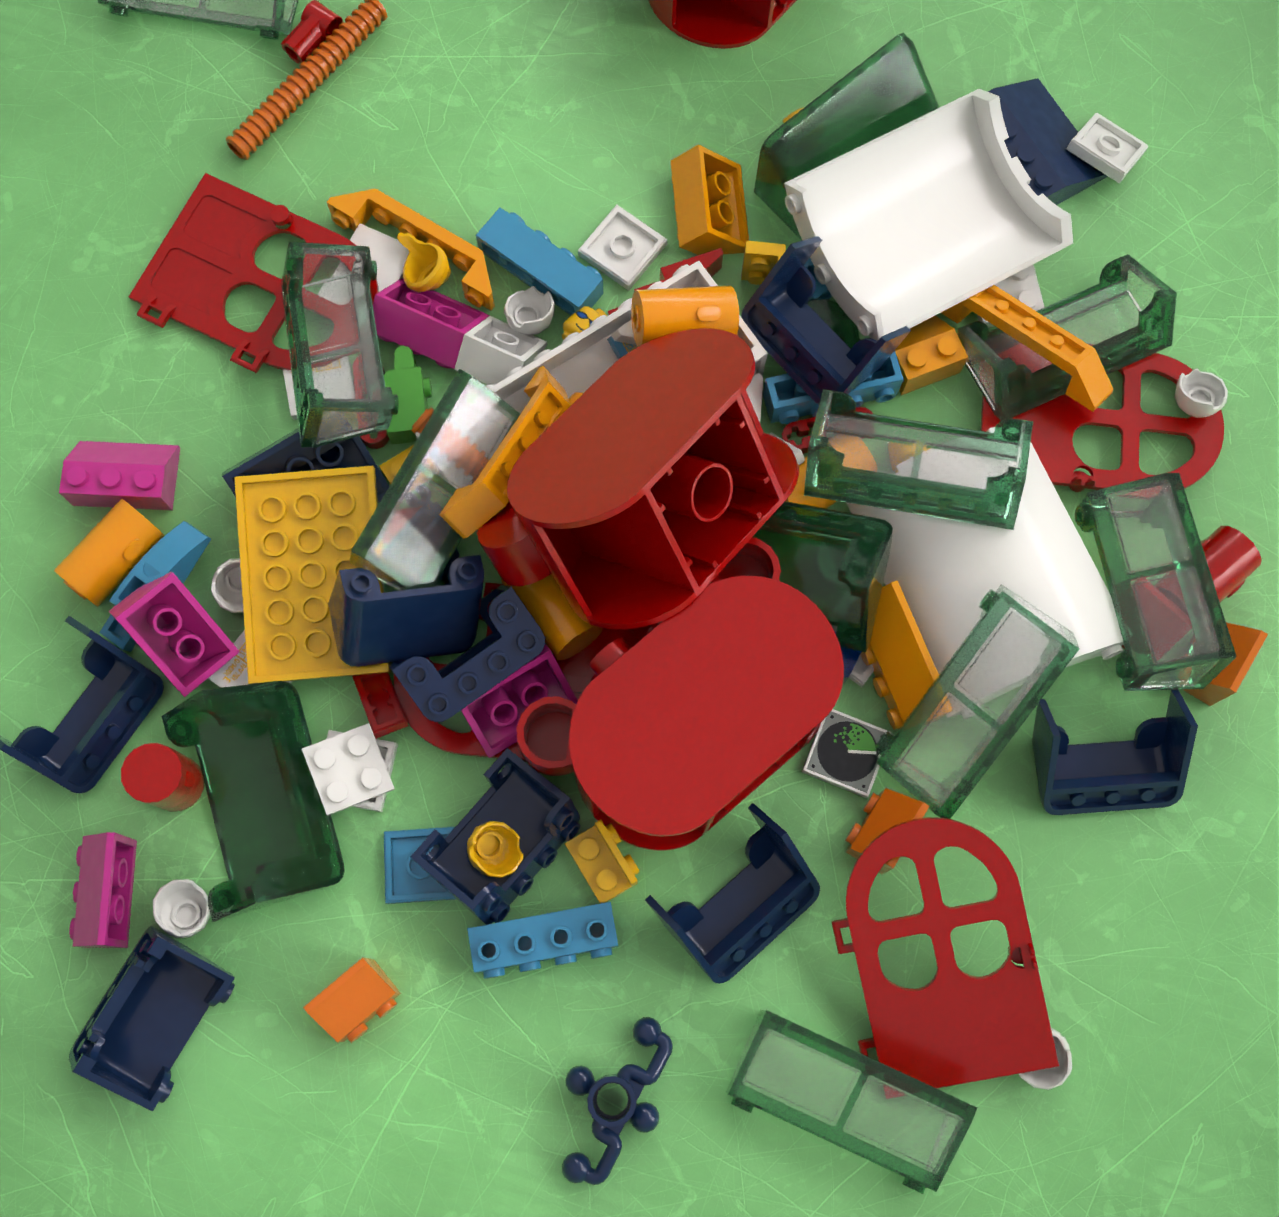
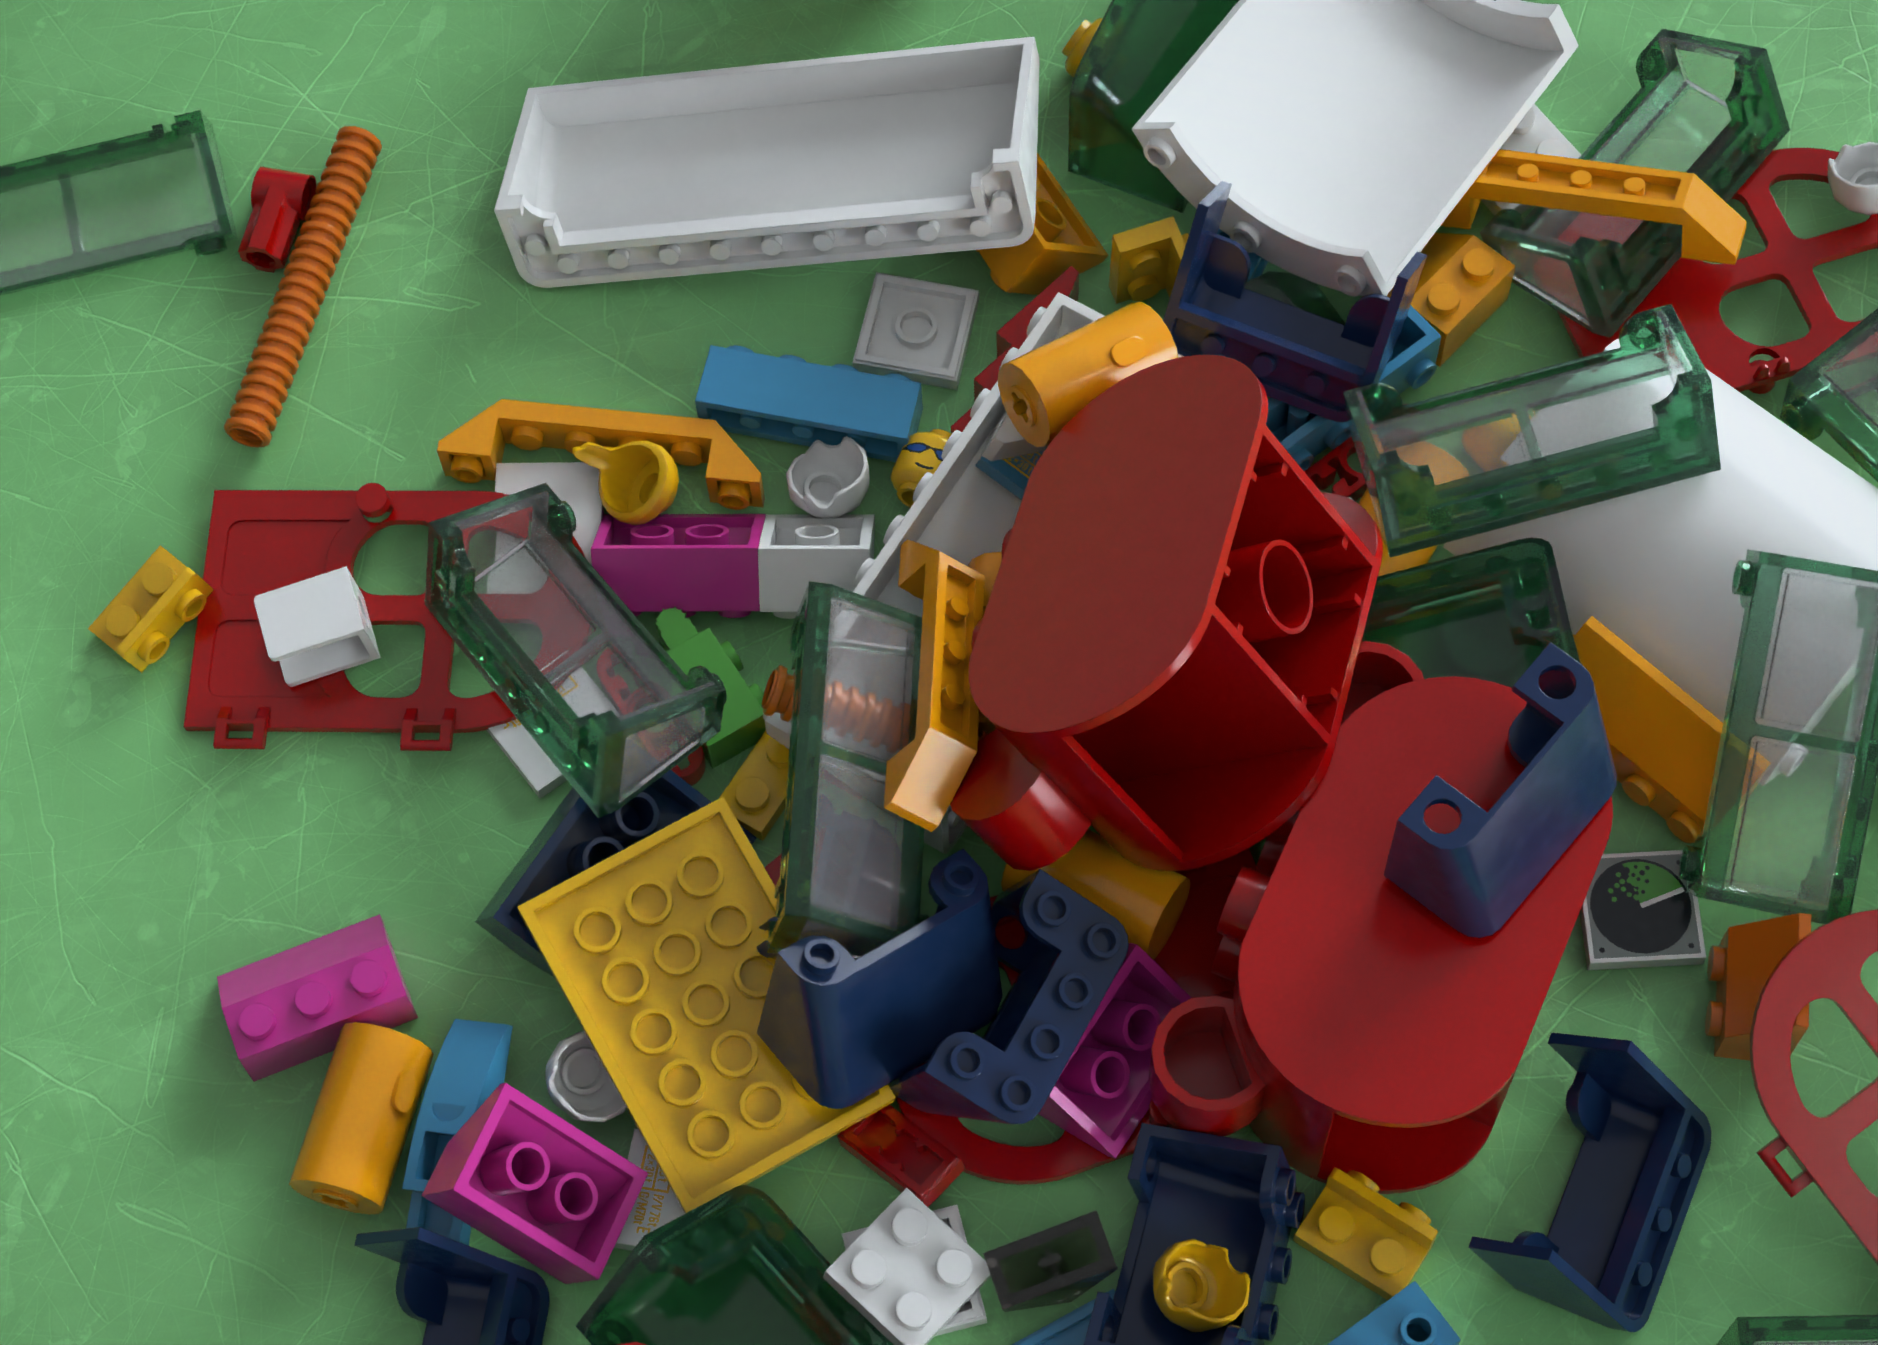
camera: 20 degrees left, 10 degrees down
(140, 225) = (151, 609): none -> yellow bracket
(215, 272) = (317, 626): none -> white piece
(422, 800) = (1051, 1264): none -> clear smoke slope
(586, 118) = (775, 165): none -> white windscreen
(744, 707) = (1500, 855): none -> dark blue windscreen

